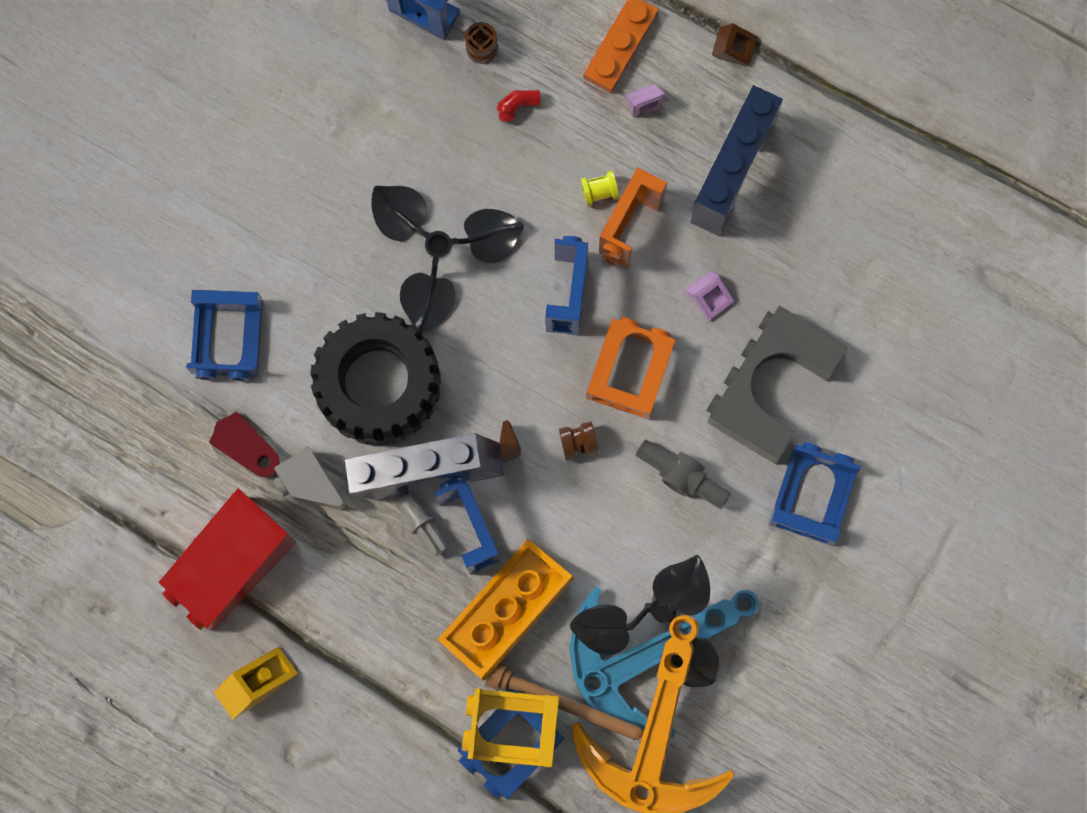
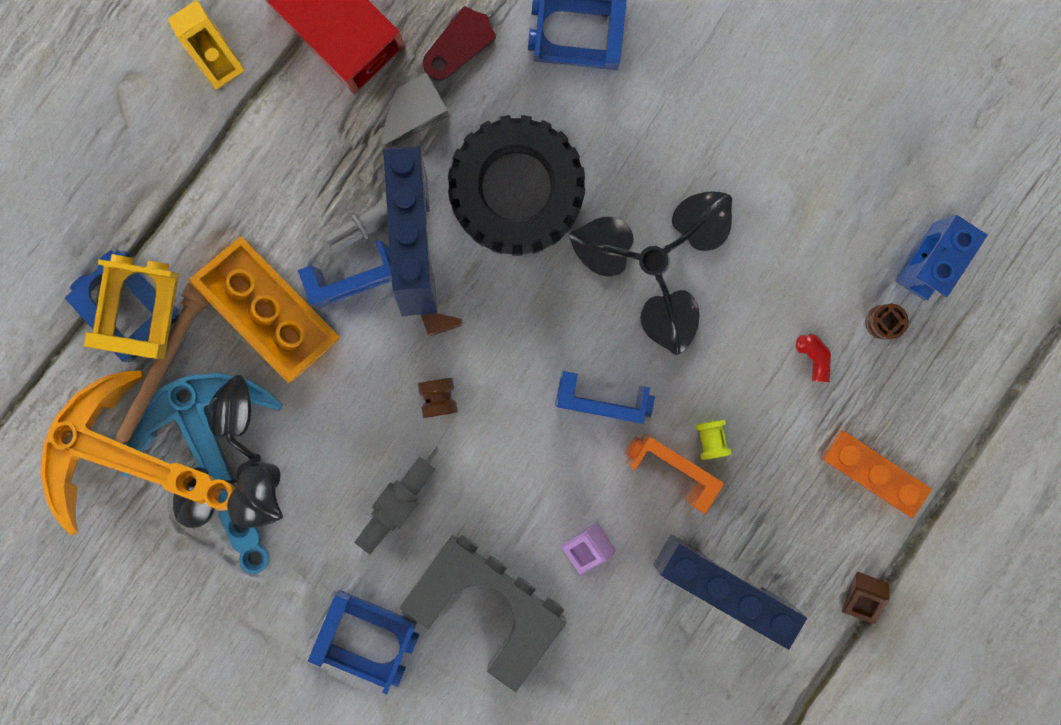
camera: 90 degrees right, 10 degrees up
(626, 402) = (527, 494): orange panel -> none
(644, 100) = (811, 495): lavender slope -> none

